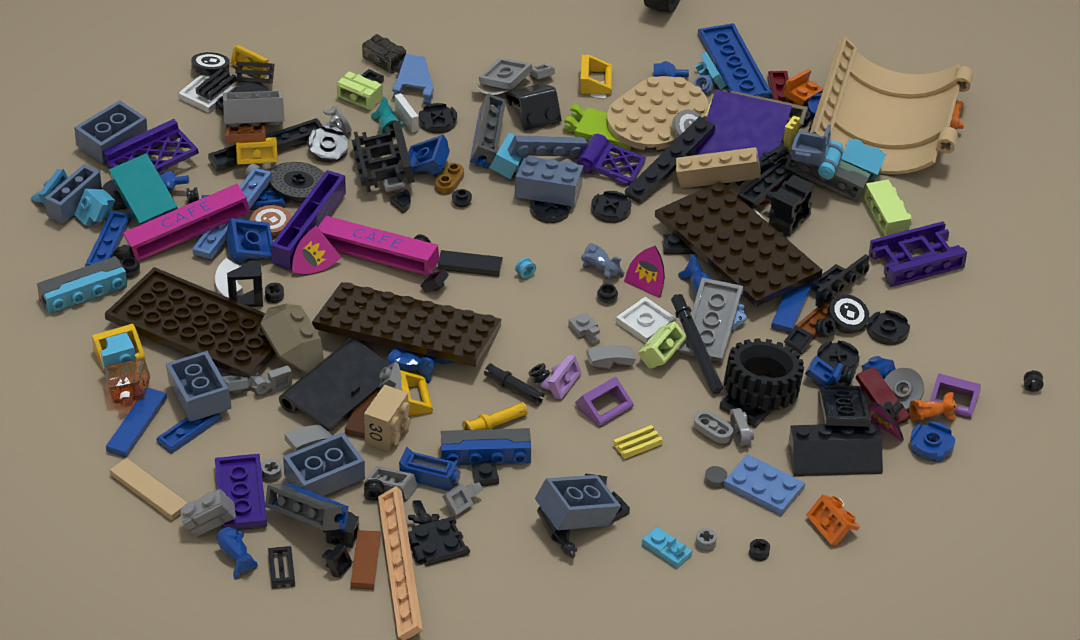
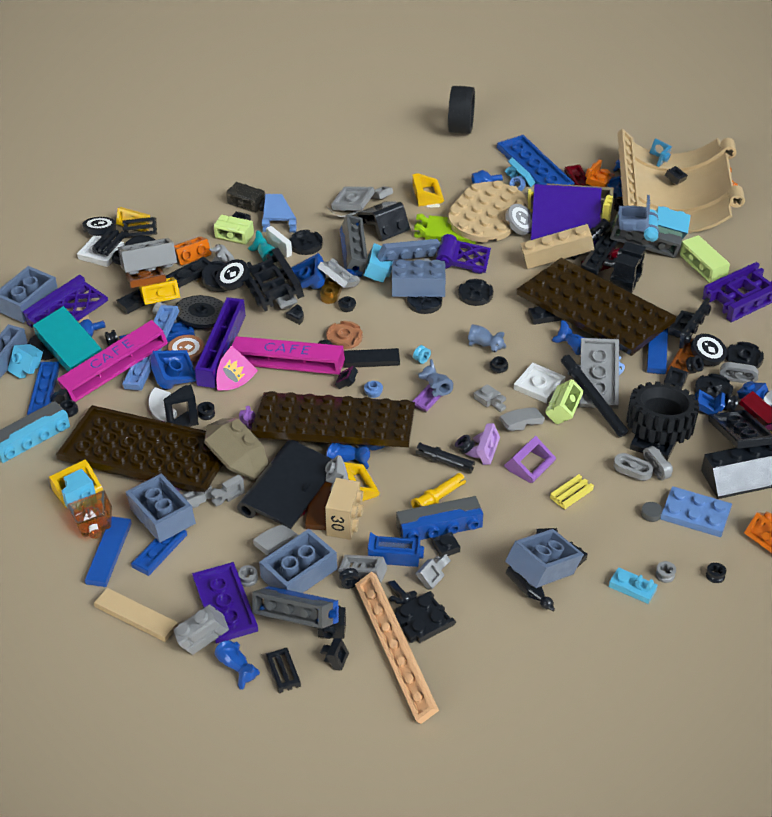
camera: 10 degrees left, 0 degrees up
(305, 108) = (192, 250): none -> orange bracket
(314, 305) = (247, 417): none -> medium lavender plate
(342, 144) = (233, 274): none -> black tile
(365, 559) = (361, 648): dark orange tile -> none
(448, 232) = (345, 334): none -> nougat tile
(460, 161) = (339, 274): none -> light grey plate
(461, 298) = (373, 389): none -> medium blue plate
(519, 315) = (425, 399): none -> medium lavender tile
(531, 302) = (440, 383): none -> sand blue animal
(647, 271) = (528, 340): dark pink shield -> none
(665, 164) = (512, 247): black plate -> none
(871, 344) = (739, 372): none -> light grey plate
(888, 76) = (664, 155): none -> dark azure bracket
(894, 101) = (676, 175): none -> black plate

